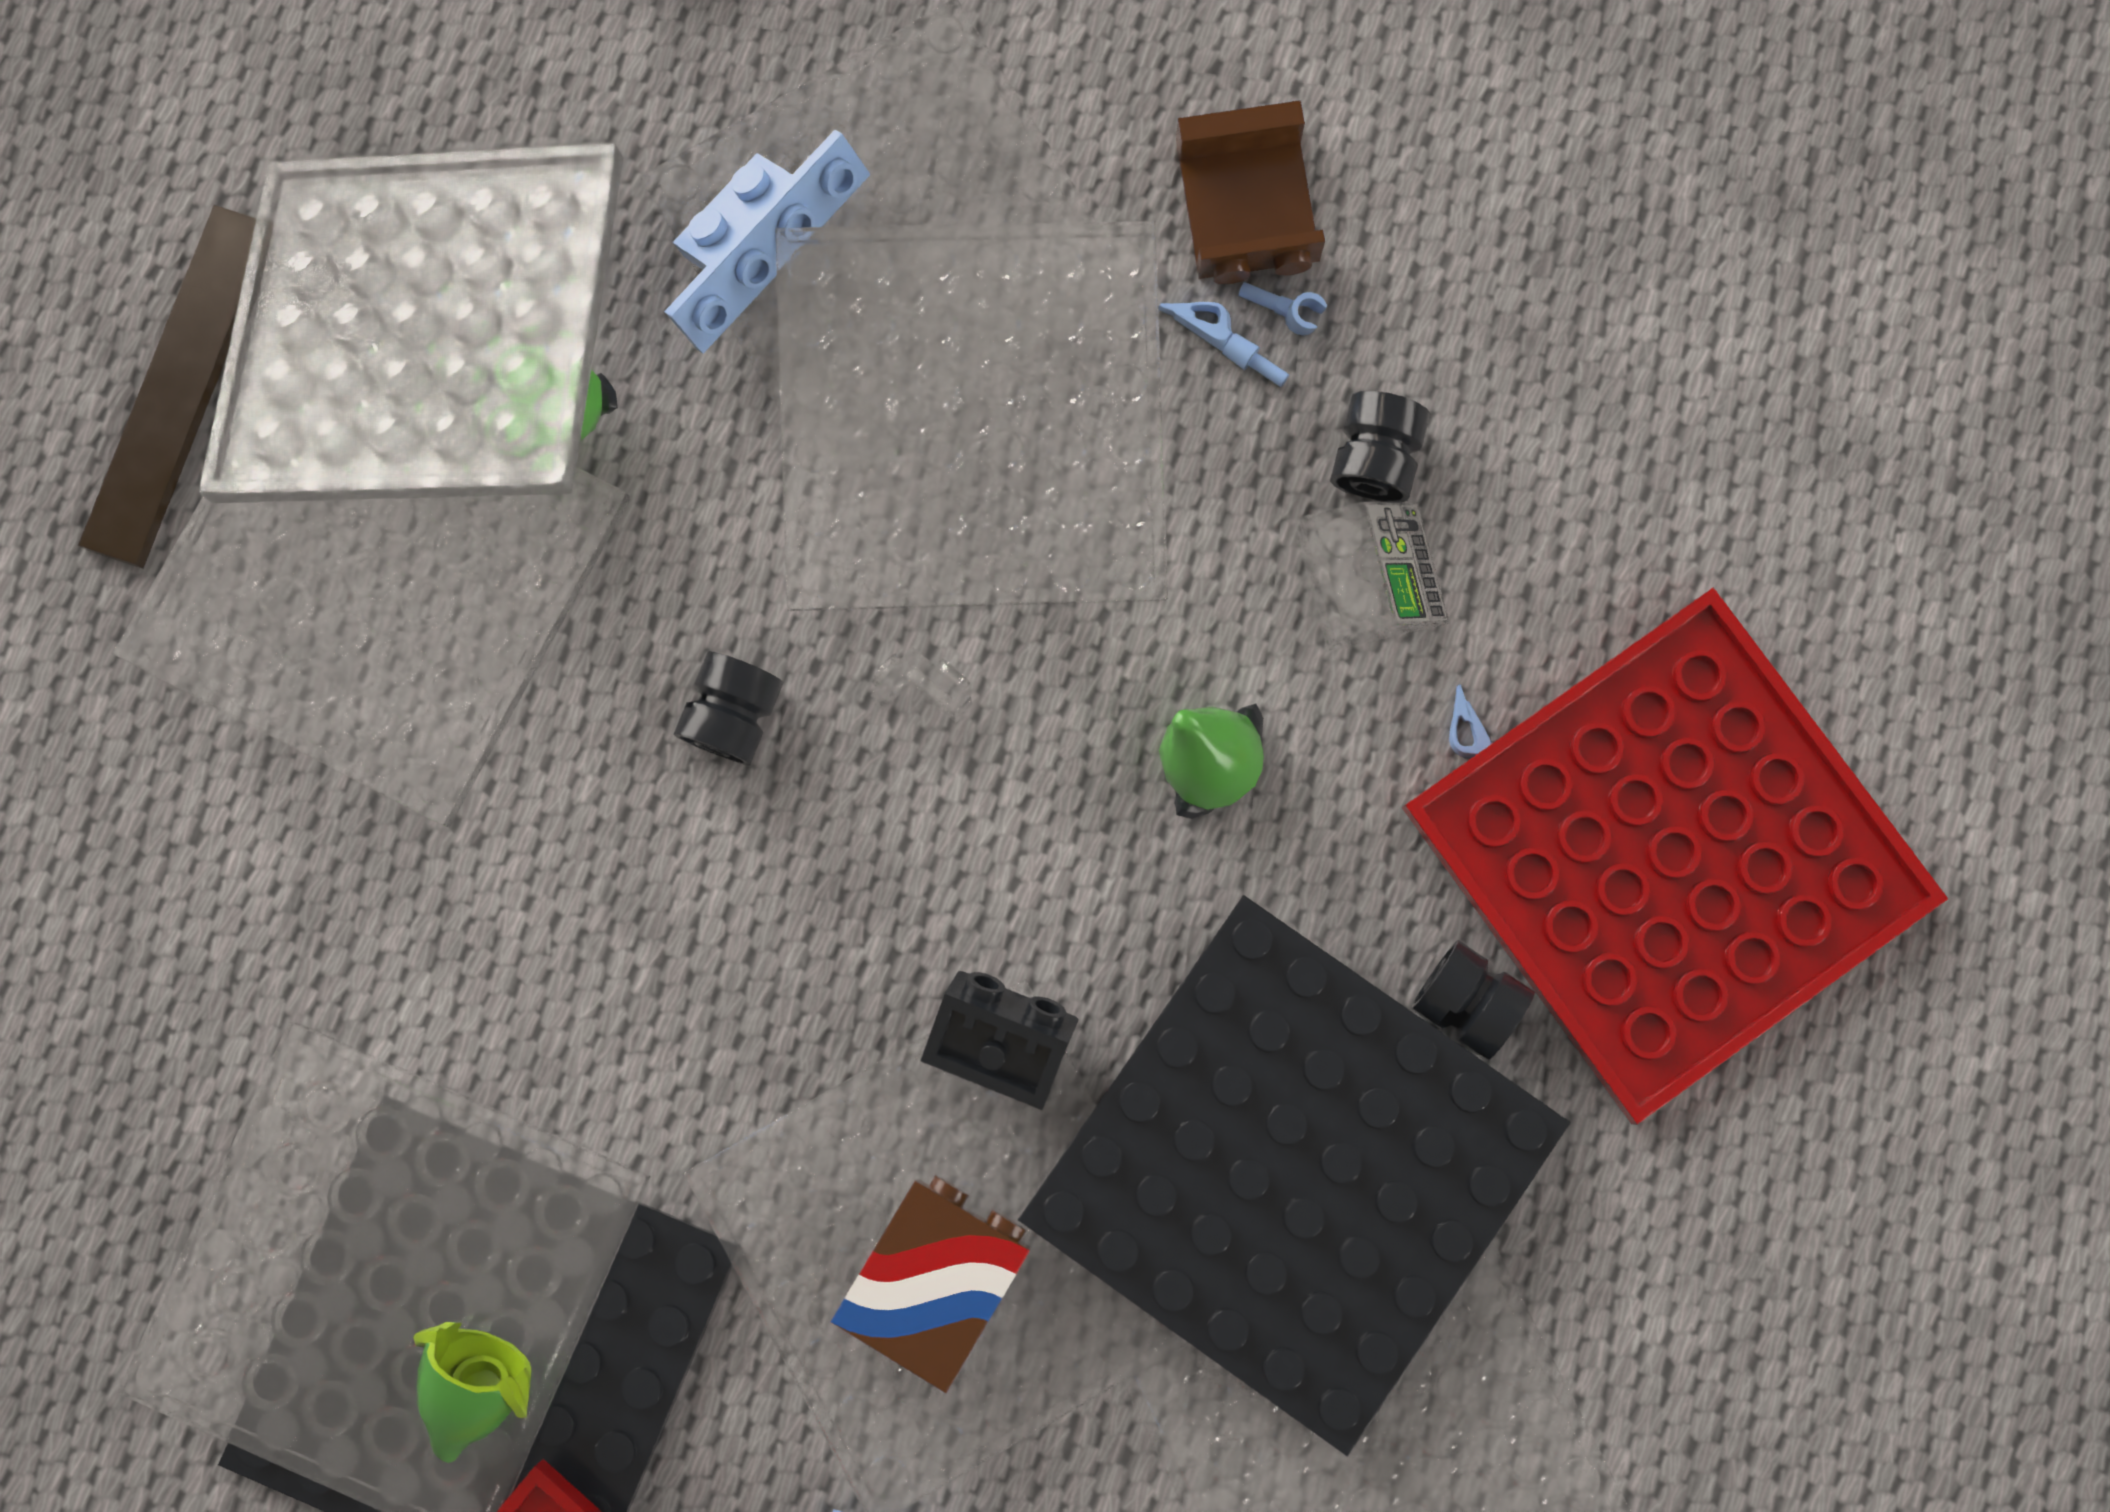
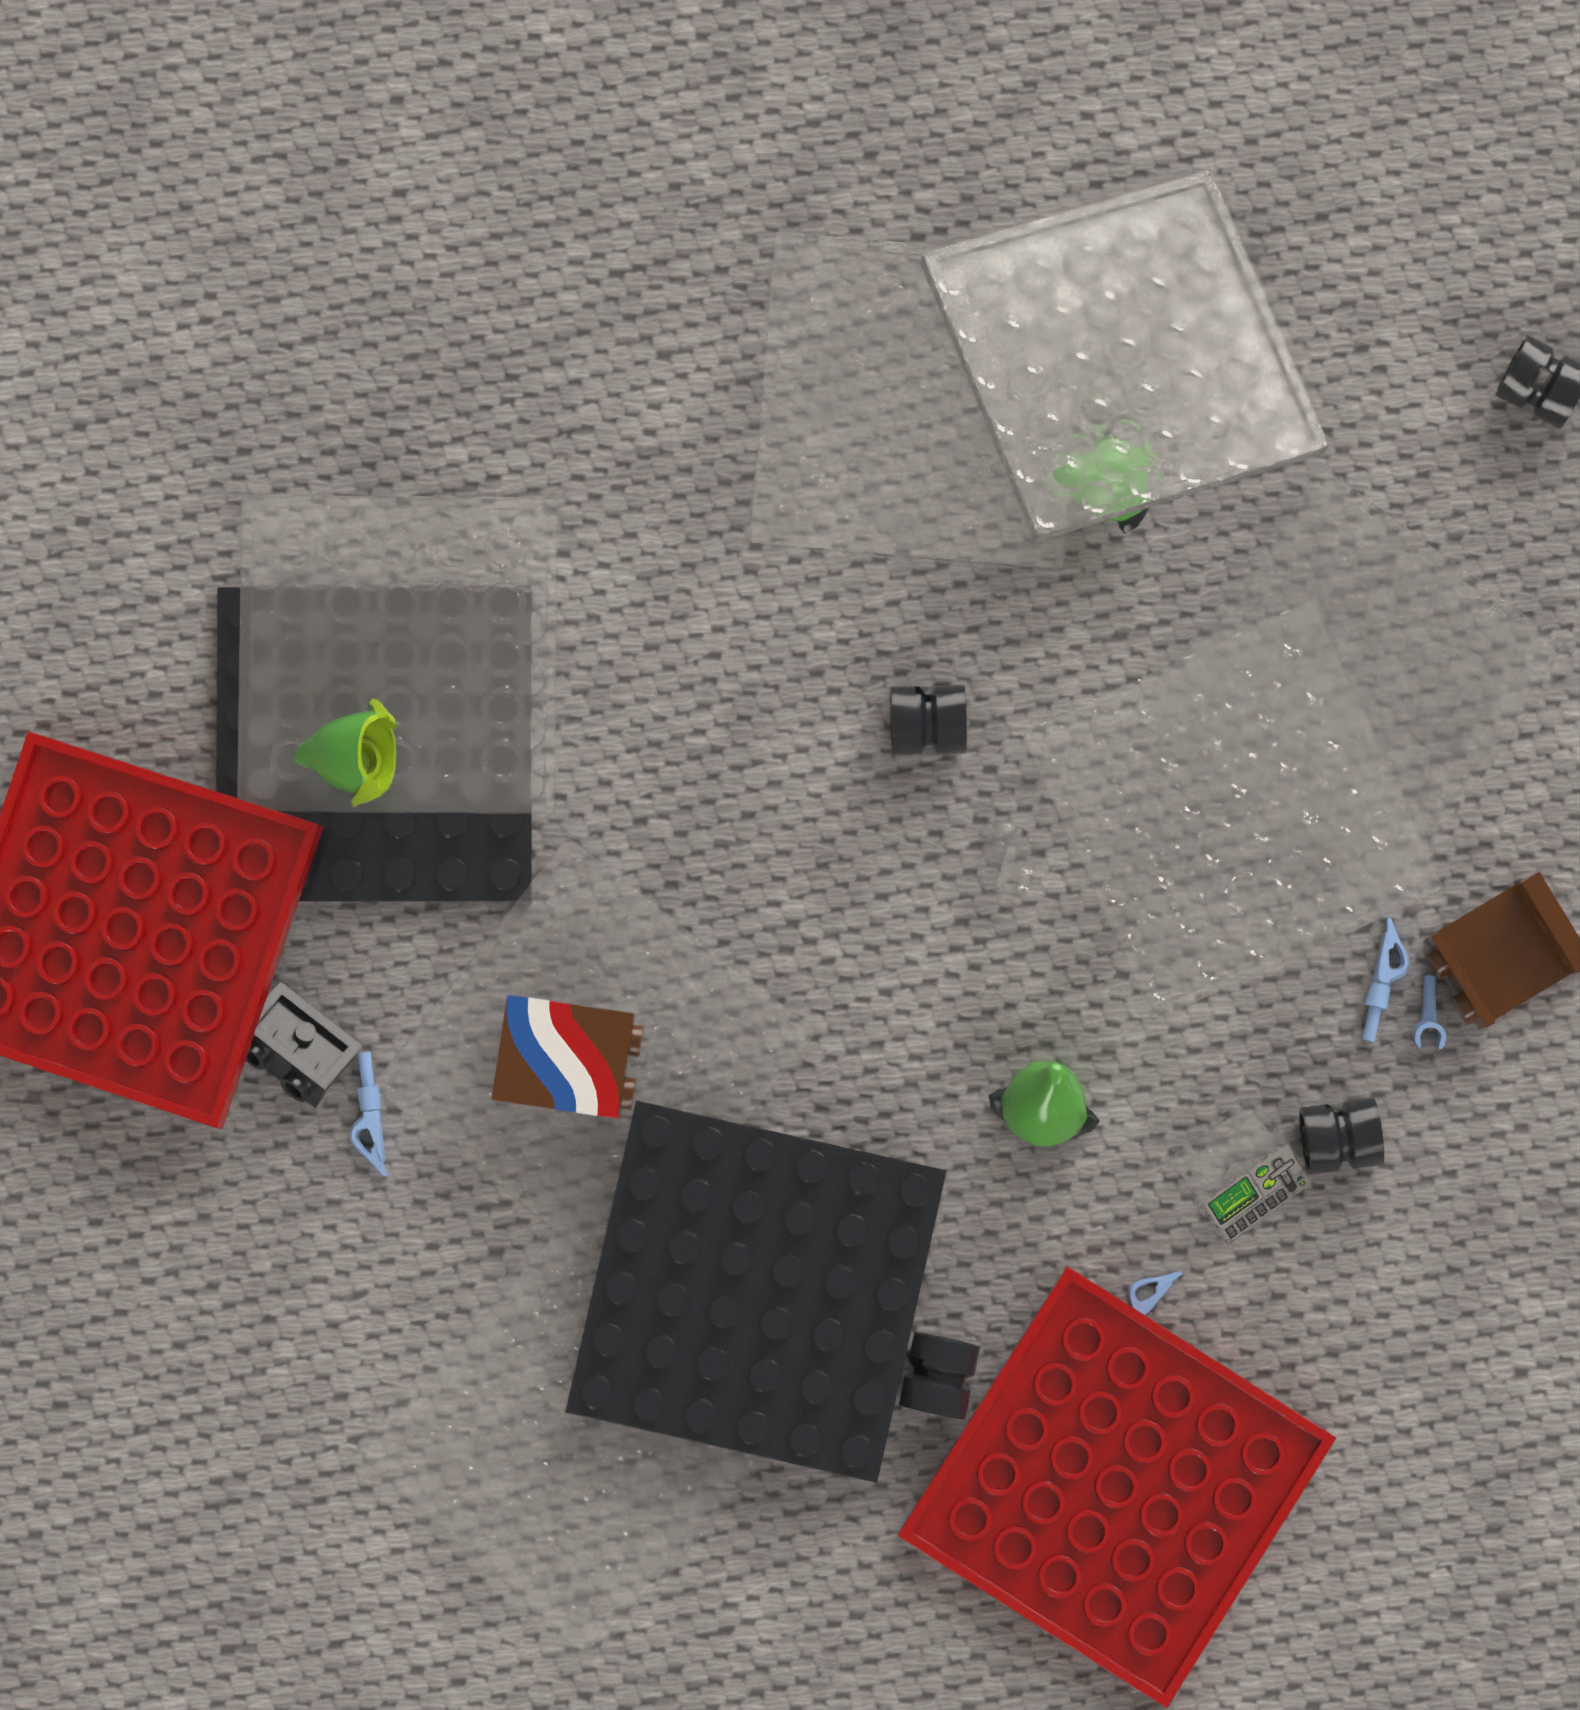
camera: 60 degrees right, 5 degrees up
(172, 395) = (1002, 179): dark brown tile -> none
(737, 235) = (1304, 568): light blue bracket -> none
(999, 1038) = (764, 1031): black bracket -> none

